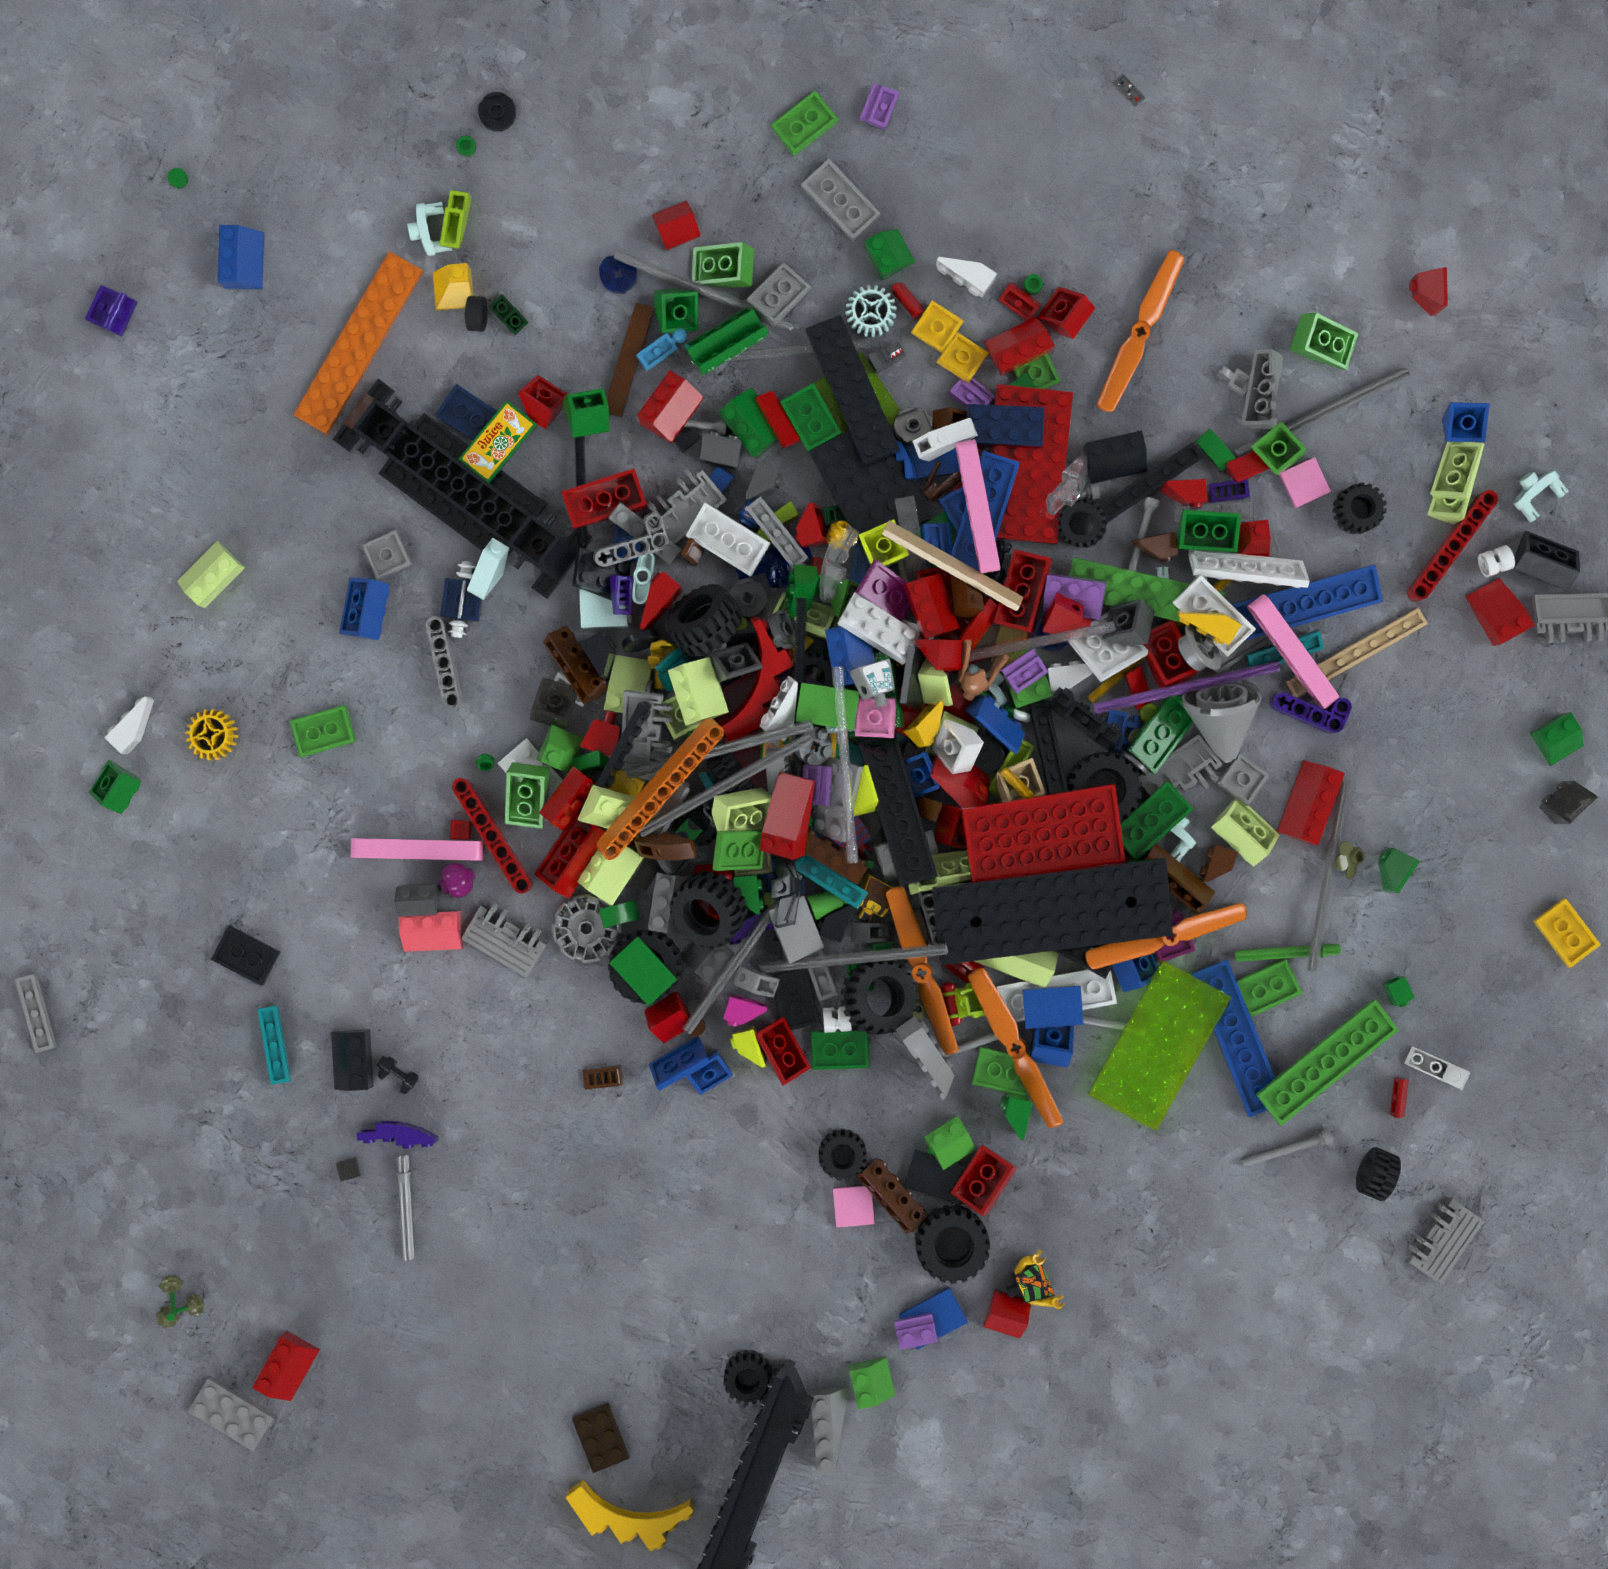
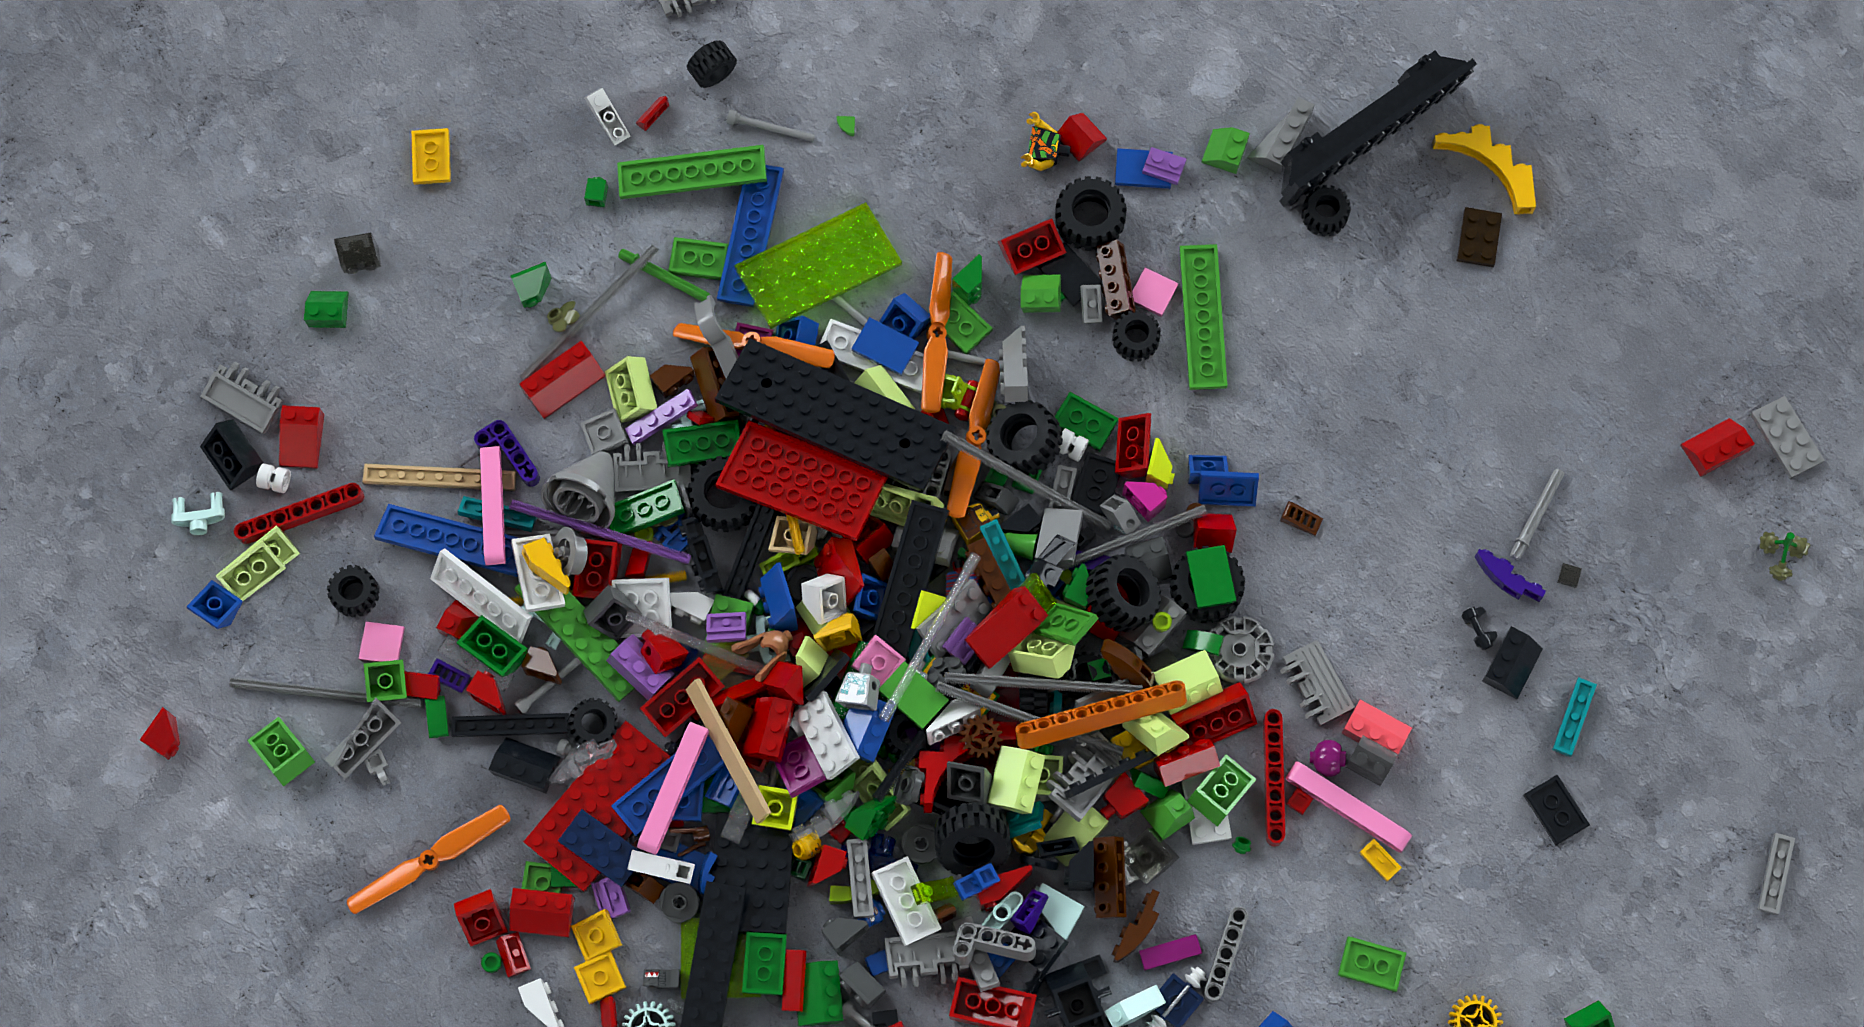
camera: 150 degrees left, 15 degrees down
(365, 821) = (1380, 860): none -> yellow plate
(491, 637) = (1170, 952): none -> magenta tile
(528, 631) = (1136, 934): none -> reddish brown slope
(631, 660) = (1057, 847): none -> black slope
(661, 906) = (1162, 622): none -> lime tile
(677, 586) = (976, 881): none -> blue slope
(710, 562) = (934, 891): none -> clear neon green plate
(743, 712) = (982, 744): none -> reddish brown gear
(779, 865) = (1039, 591): none -> clear neon green plate
(796, 1209) = (1203, 317): none -> bright green plate
(899, 1159) = (1091, 304): none -> light grey plate
(951, 466) = (671, 842): none -> dark grey plate
(1169, 842) = (700, 417): none -> red tile
(1196, 918) = (715, 335): none -> light grey piece
(1203, 822) = (661, 417): none -> plate
(1220, 1195) = (847, 124): none -> bright green tile

